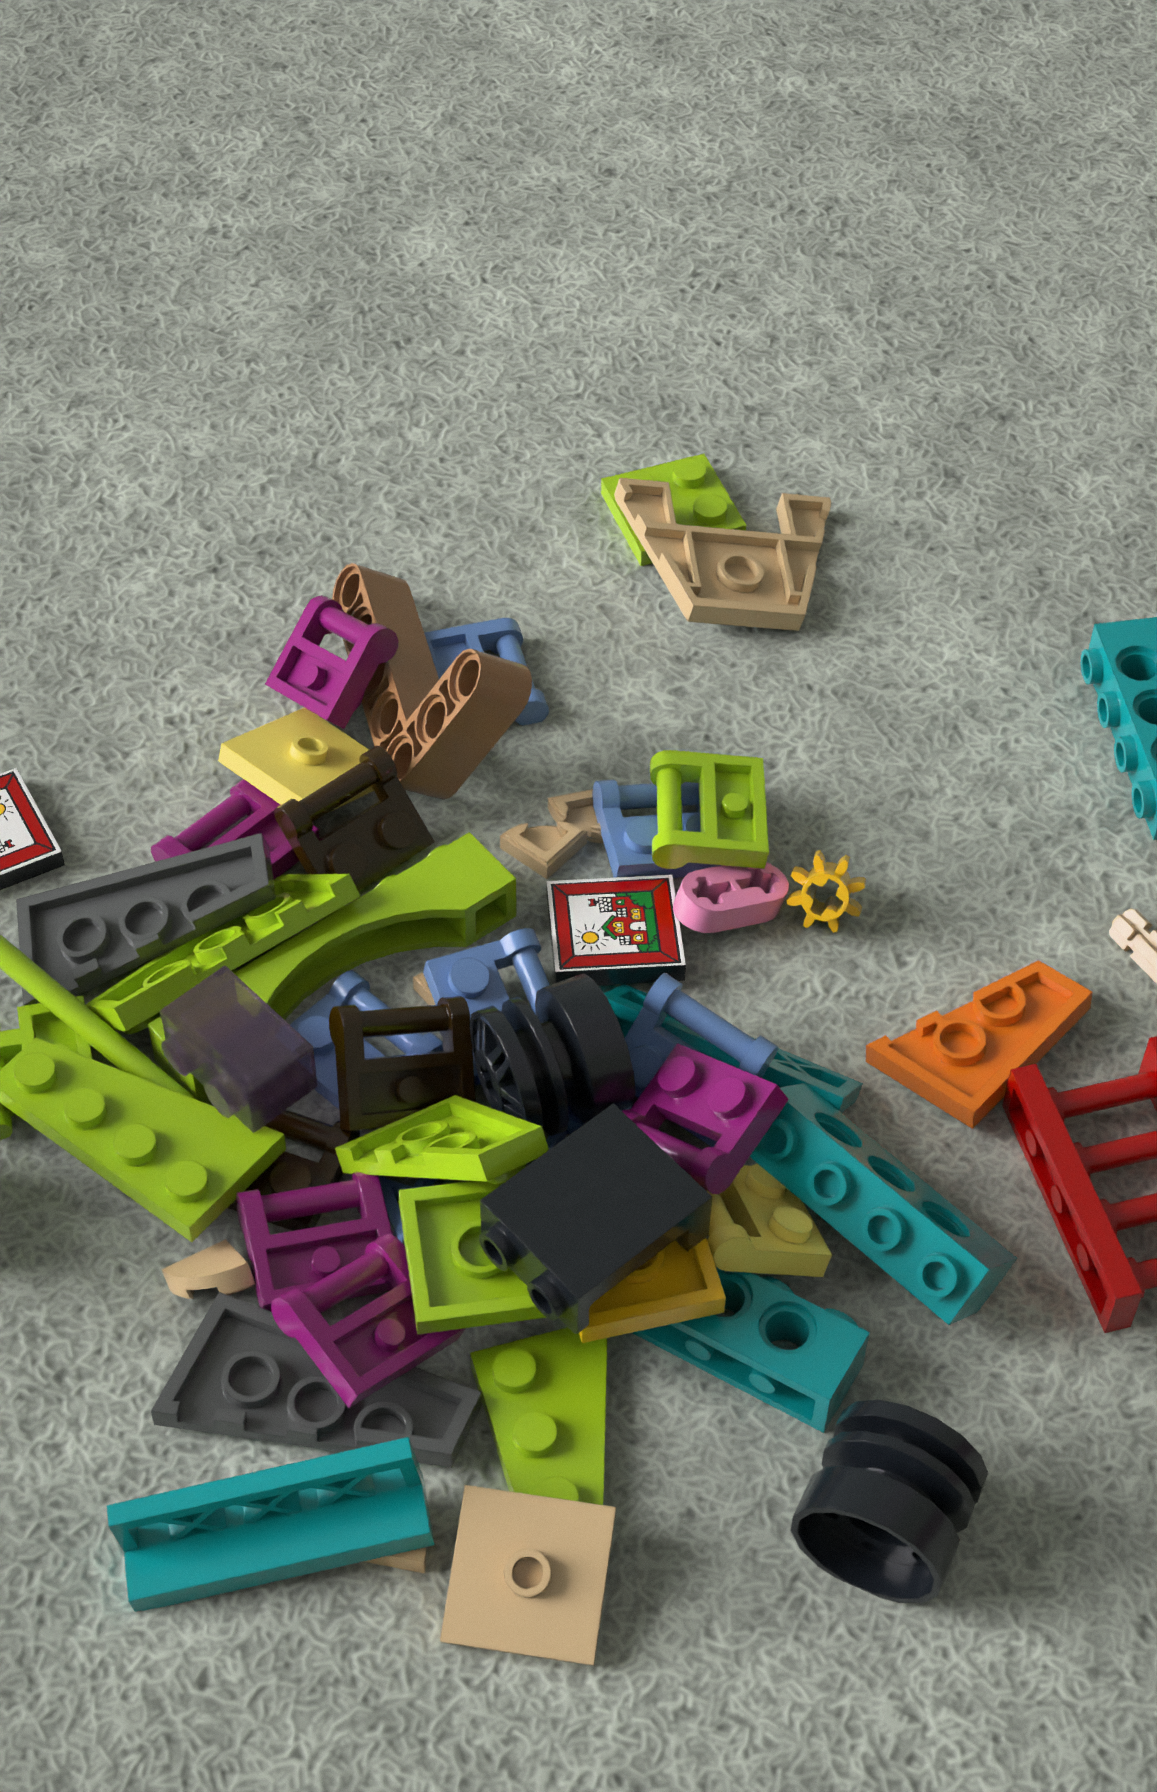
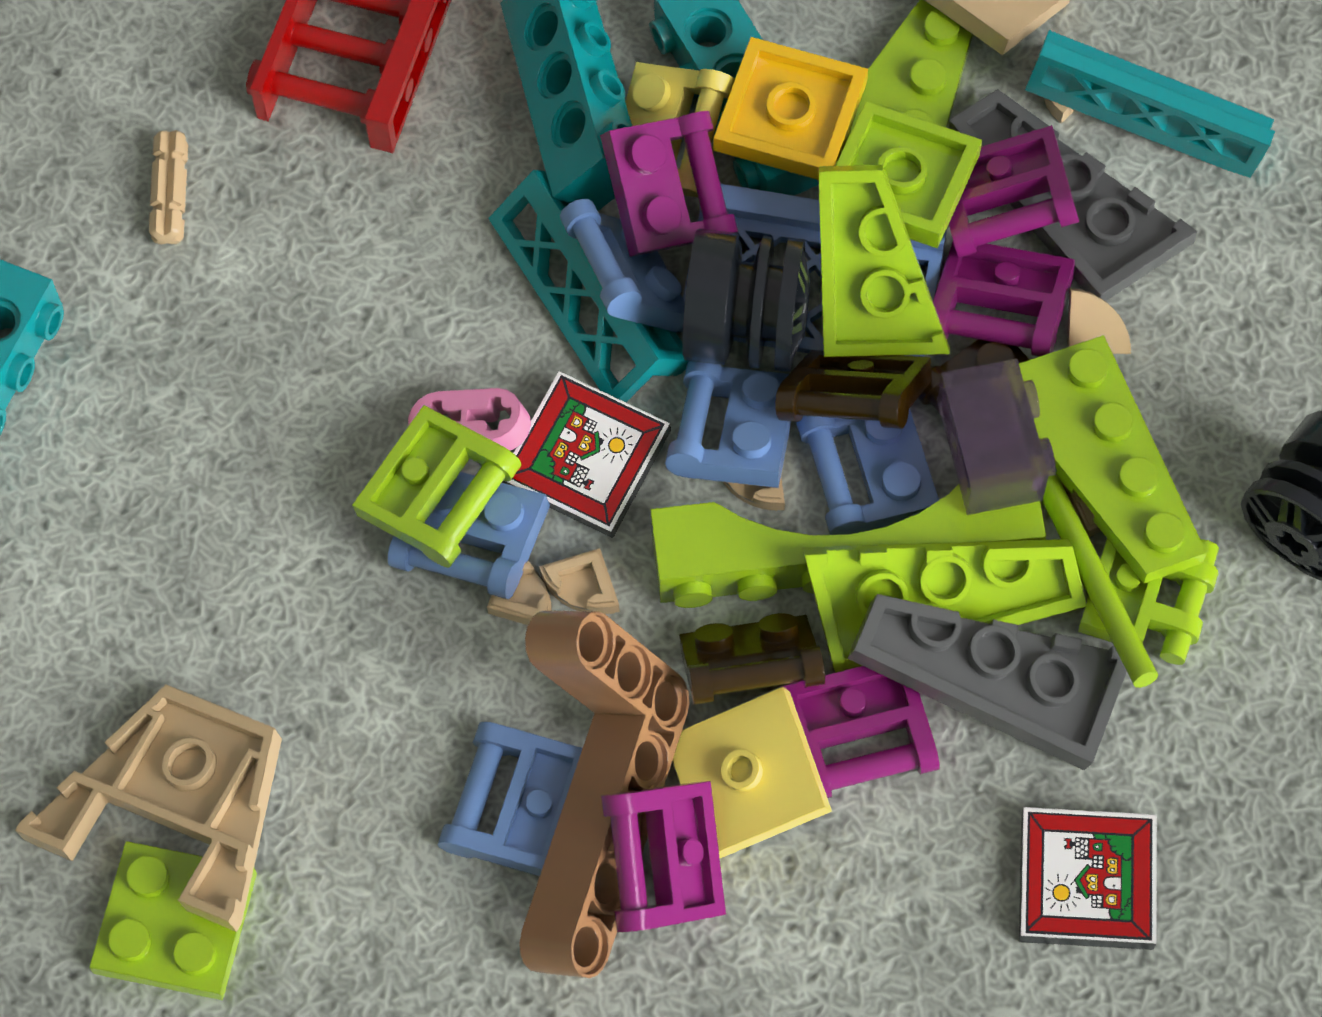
camera: 145 degrees left, 15 degrees up
(591, 1215) = (816, 105): black panel -> none
(833, 907) = (389, 376): yellow gear -> none
(967, 1054) = (368, 191): orange wing -> none

